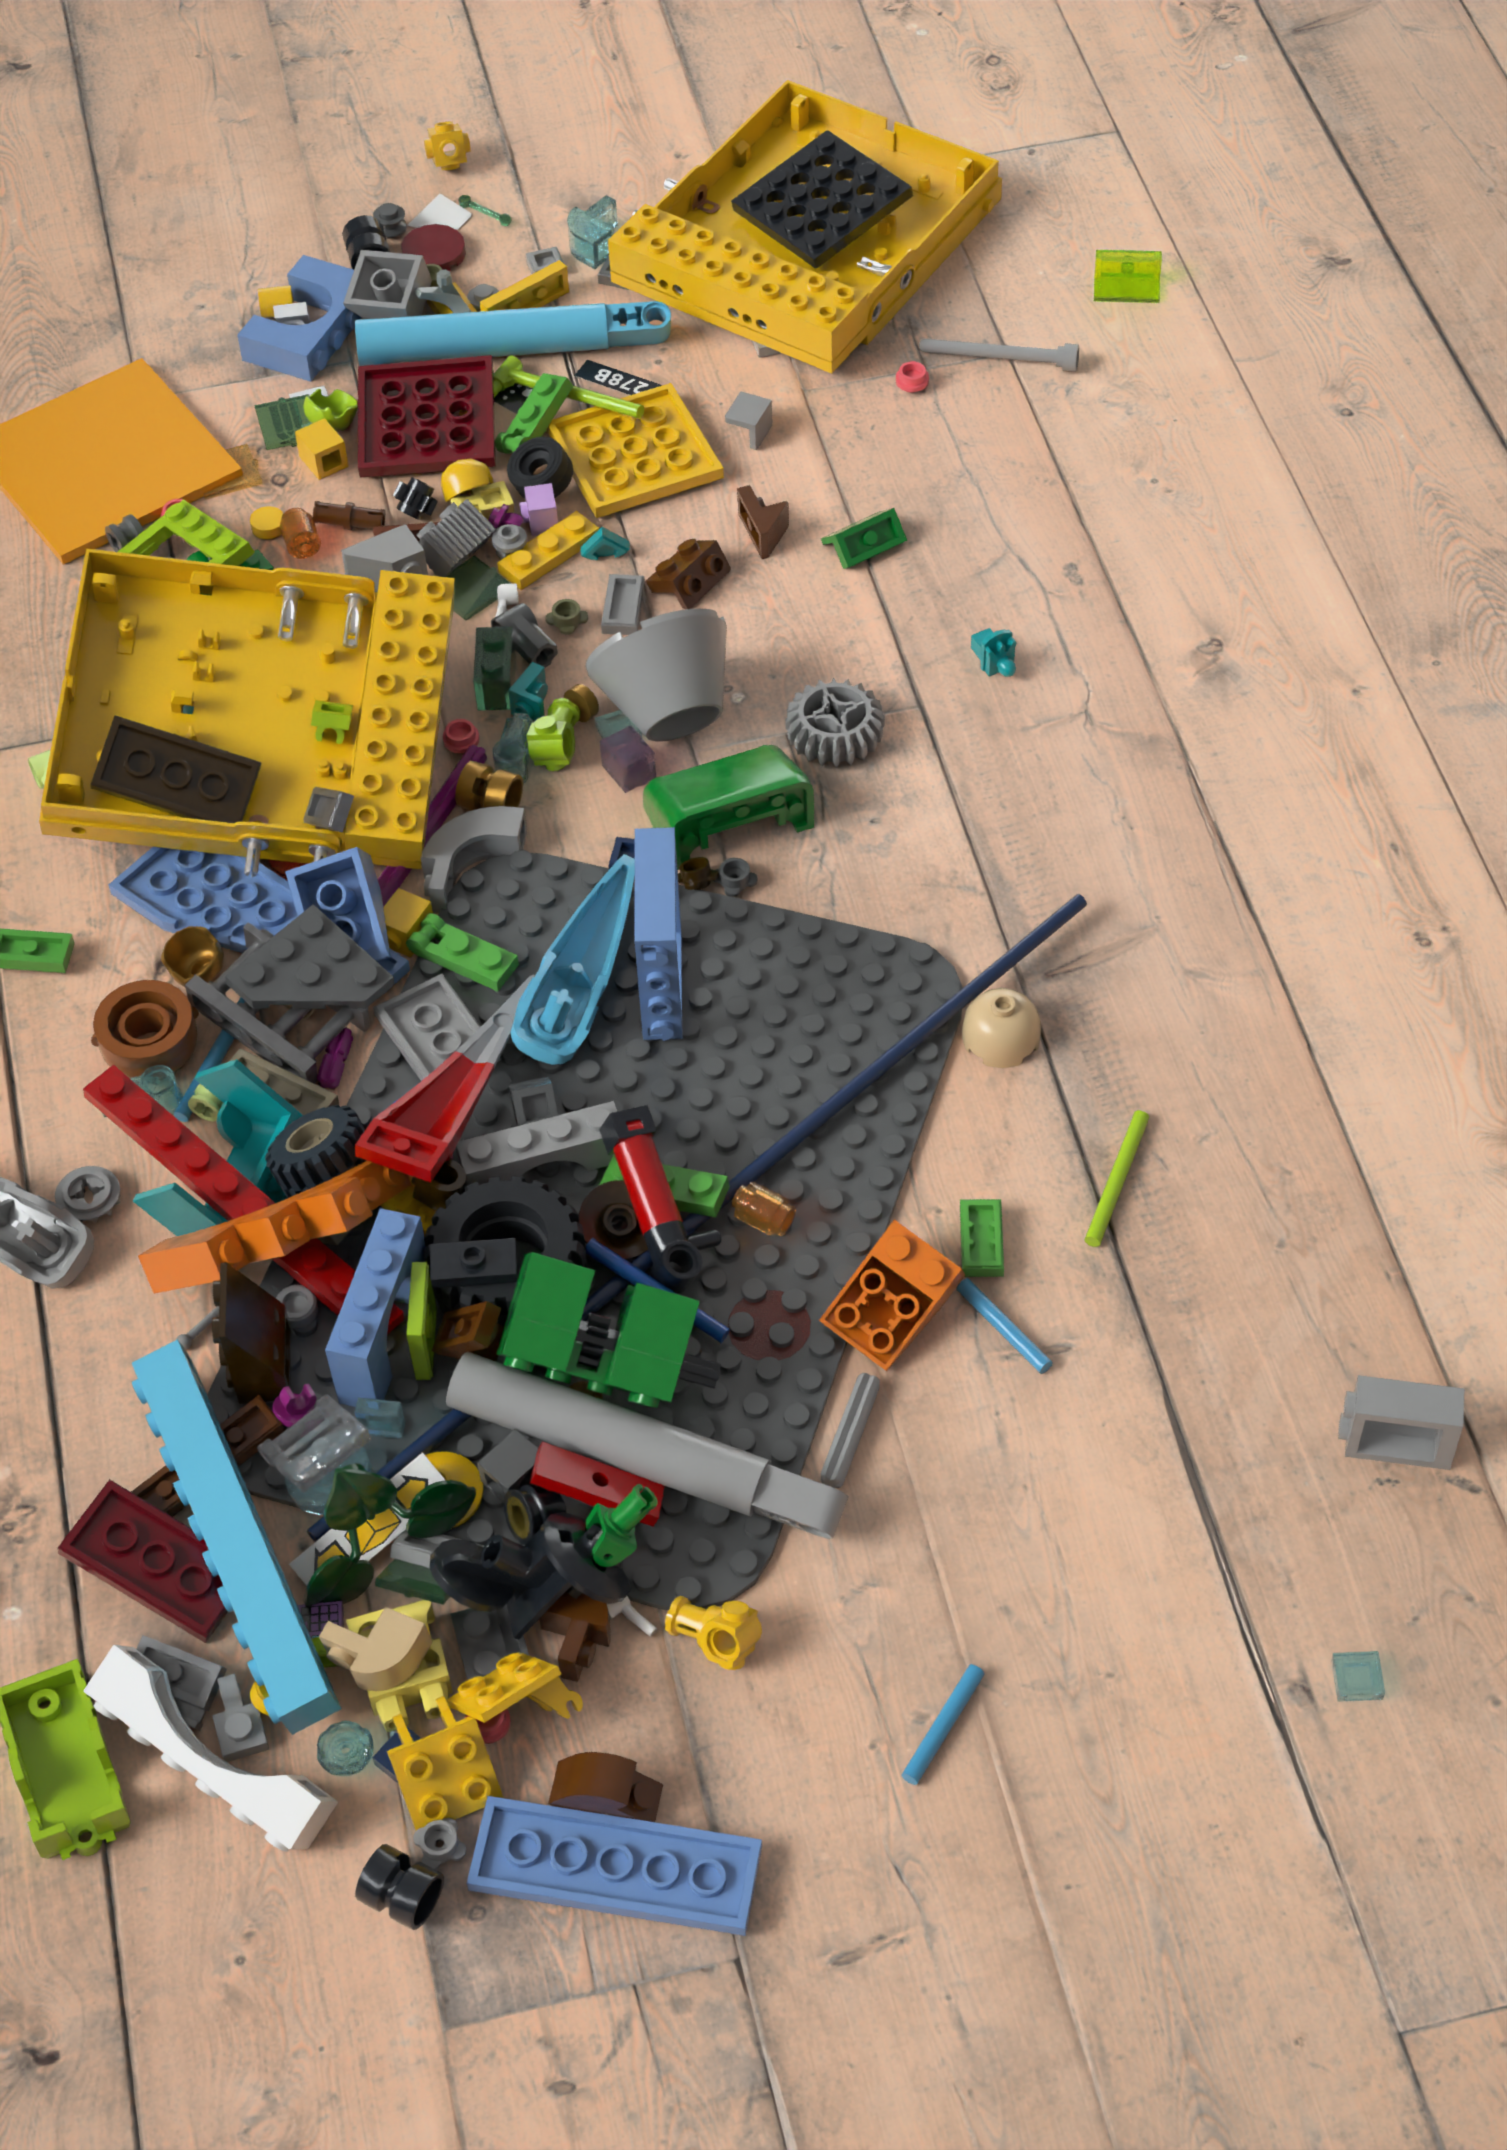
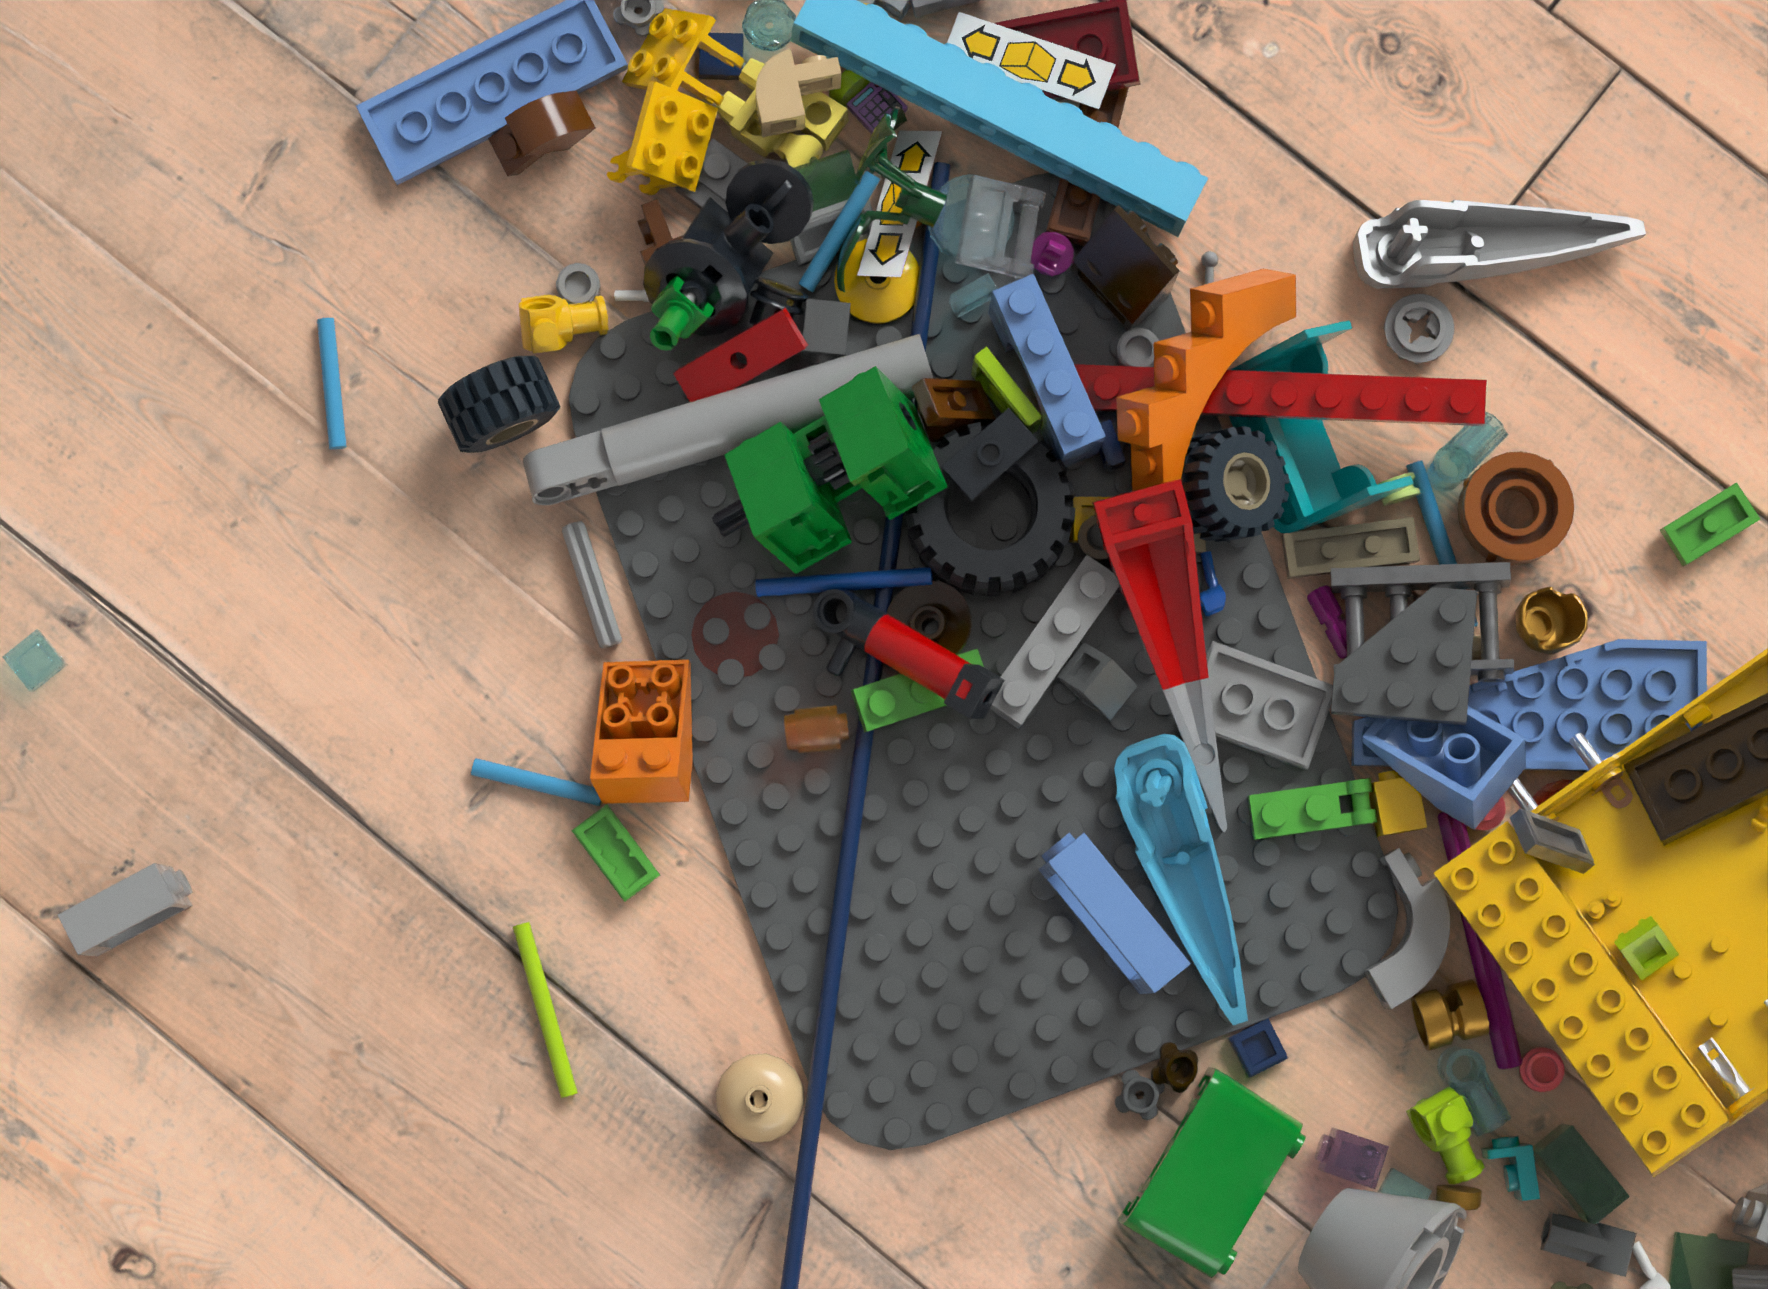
camera: 135 degrees right, 30 degrees up
(174, 1564) = (1034, 60): none -> sticker
(436, 1533) = (839, 231): none -> dark azure bar
(677, 1659) = (578, 283): none -> light grey tile
(817, 1582) = (498, 404): none -> black wheel

